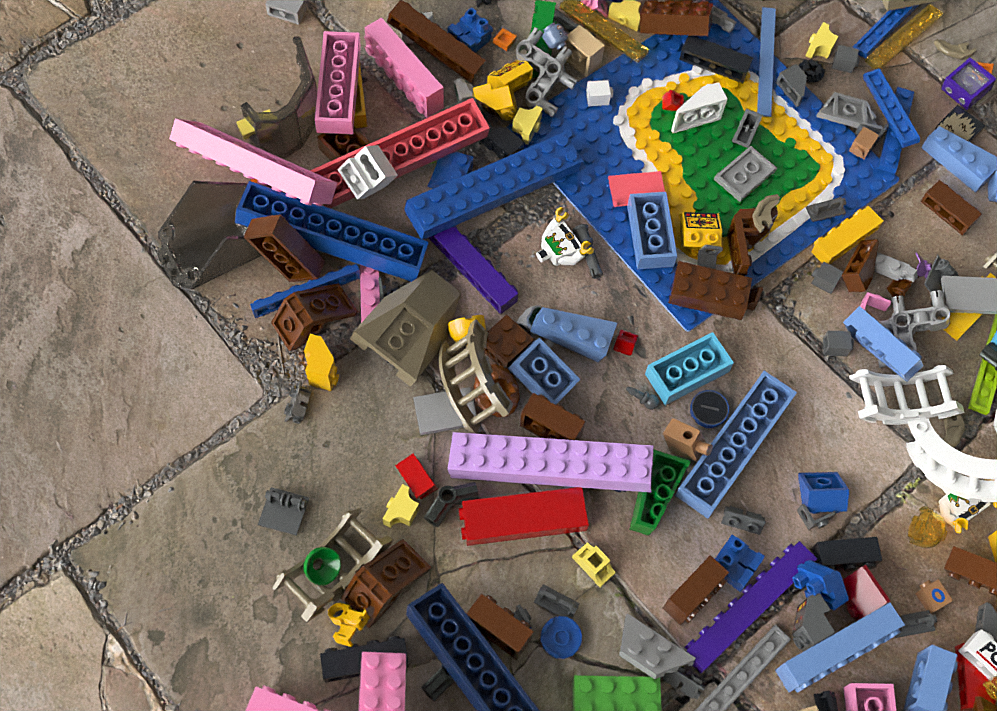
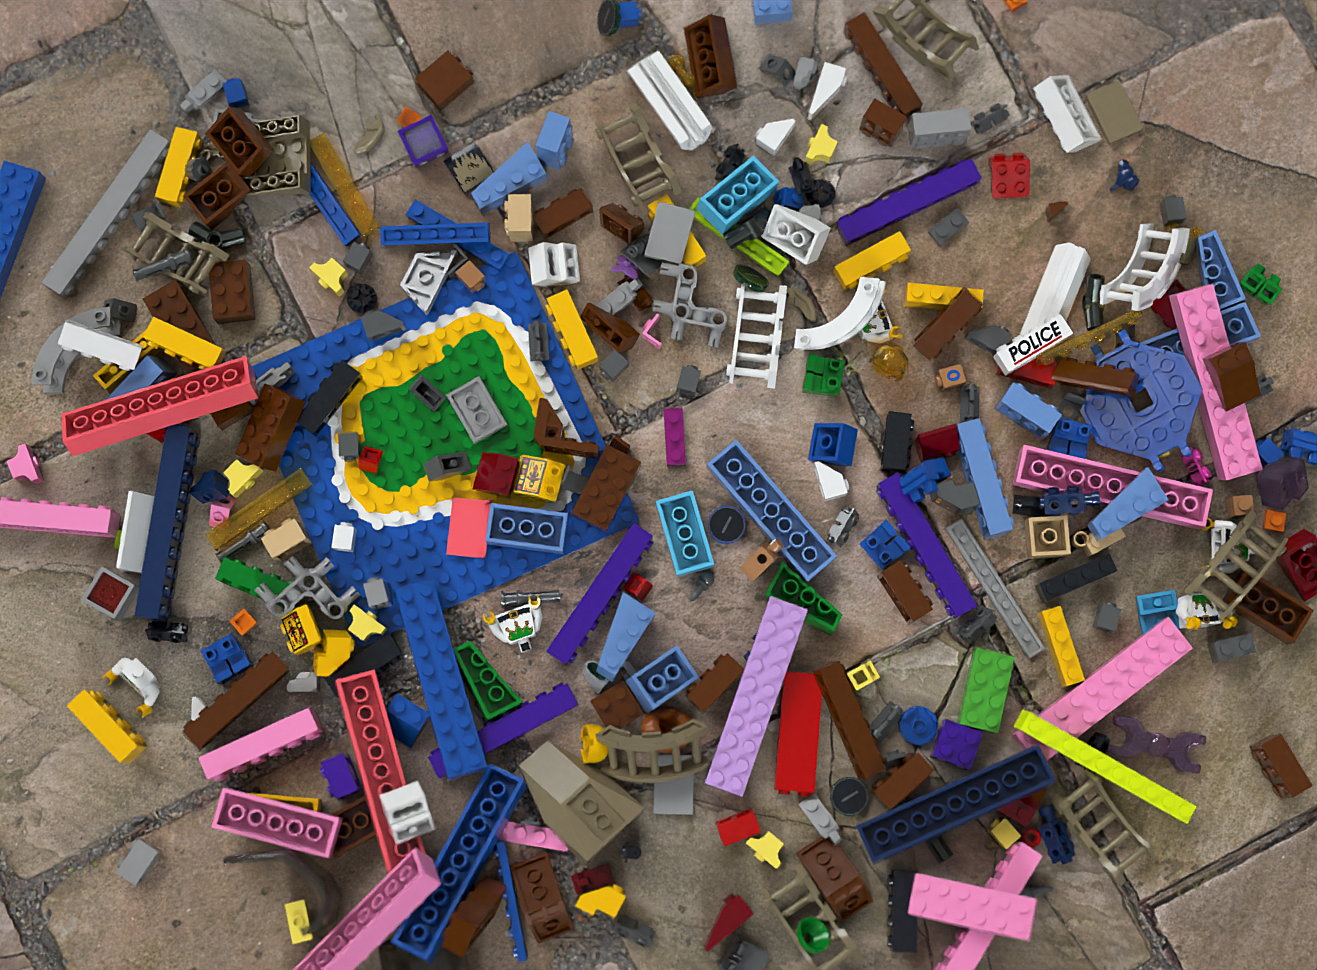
camera: 75 degrees left, 15 degrees up
(324, 481) = (730, 916): none -> dark red slope
(341, 357) = (592, 879): none -> dark red hinge
(348, 621) = (865, 918): yellow piece -> none
(371, 378) = (630, 852): none -> black hinge
(387, 123) = (341, 776): none -> dark purple piece
(441, 507) = (774, 811): pearl dark grey piece -> none
(442, 555) = (820, 818): none -> light grey hinge
(471, 580) = (849, 796): none -> black tile
(498, 228) = (486, 685): none -> green wedge
(549, 559) = (849, 720): none -> reddish brown brick
(551, 680) = (956, 744): none -> dark purple piece
(555, 36) = (271, 569): sand blue head -> none
(557, 121) = (377, 593): none -> light grey brick
(610, 307) = (599, 594): none -> dark purple brick
(651, 650) = (949, 648): light grey wing -> none
(680, 80) = (349, 446): none -> dark grey brick
(687, 157) = (446, 466): none -> dark grey slope
(692, 199) = (496, 474): none -> dark red slope
(702, 108) = (391, 428): white slope -> none
(762, 213) = (545, 415): dark tan piece -> none
(766, 62) = (340, 343): medium blue piece -> none
(778, 345) = (674, 437): none -> magenta plate
(783, 496) = (830, 482): none -> white slope
(809, 521) = (861, 456): dark grey bracket -> none
(883, 344) = (705, 339): medium blue wedge -> none
(887, 467) = (823, 376): none -> green hips
(901, 209) = (554, 264): none -> white piece
(931, 168) = (520, 217): none -> tan brick
(958, 378) = (750, 276): none -> tile
(965, 250) = (620, 223): none -> reddish brown slope

